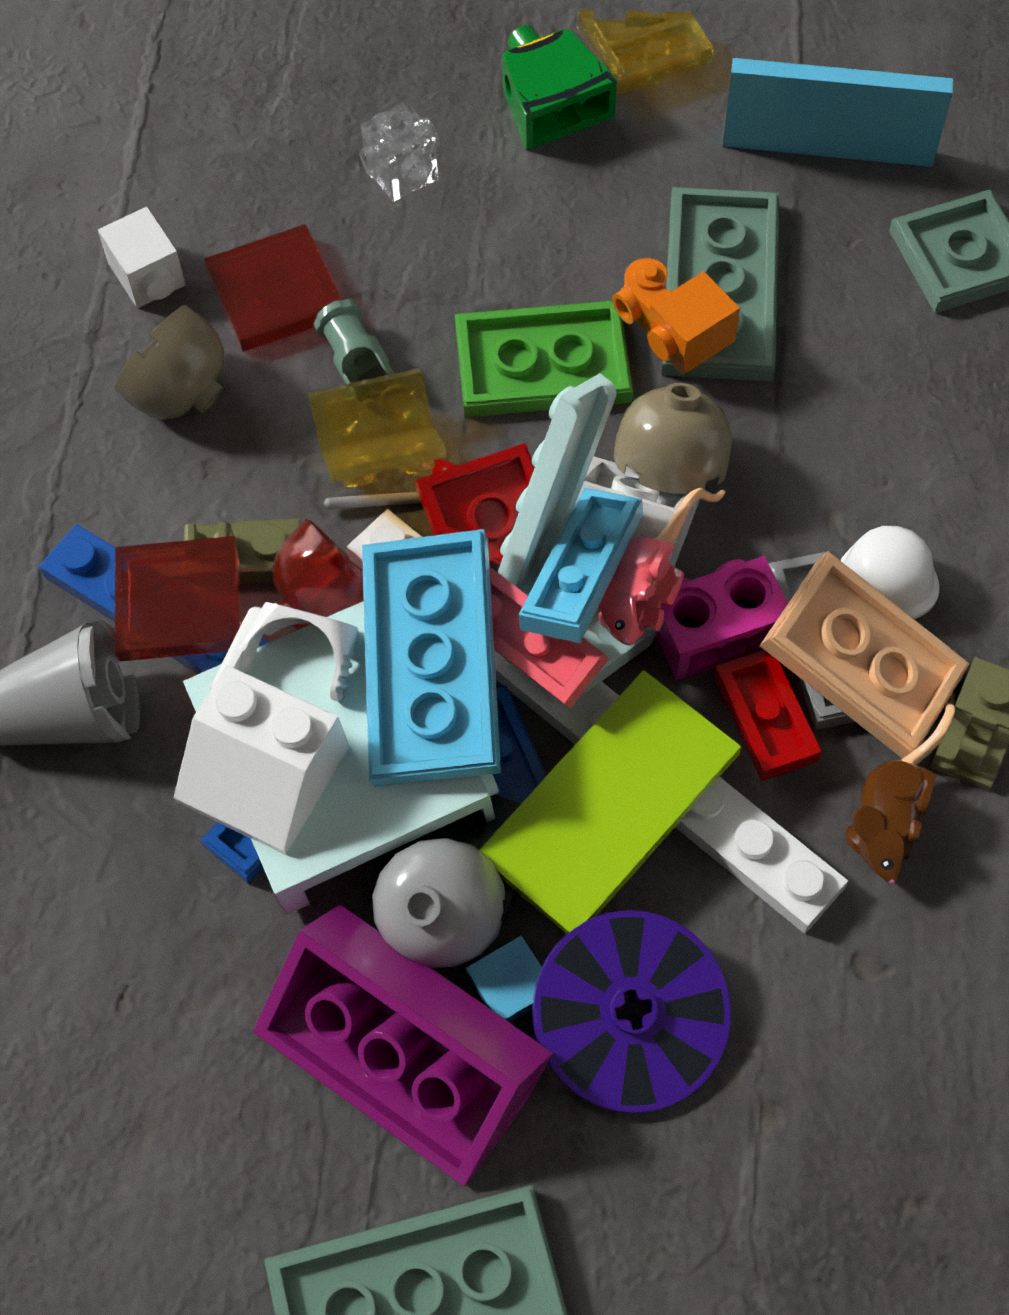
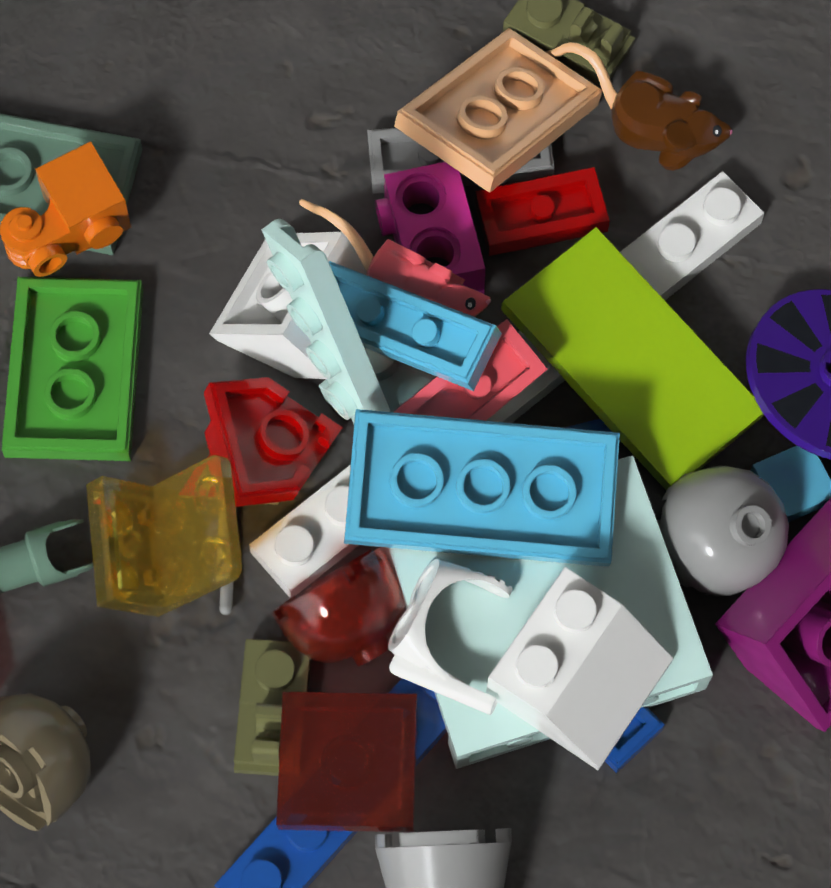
camera: 85 degrees left, 5 degrees up
(674, 439) = (220, 242): dark tan cylinder -> none
(897, 566) = (394, 72): white helmet -> none

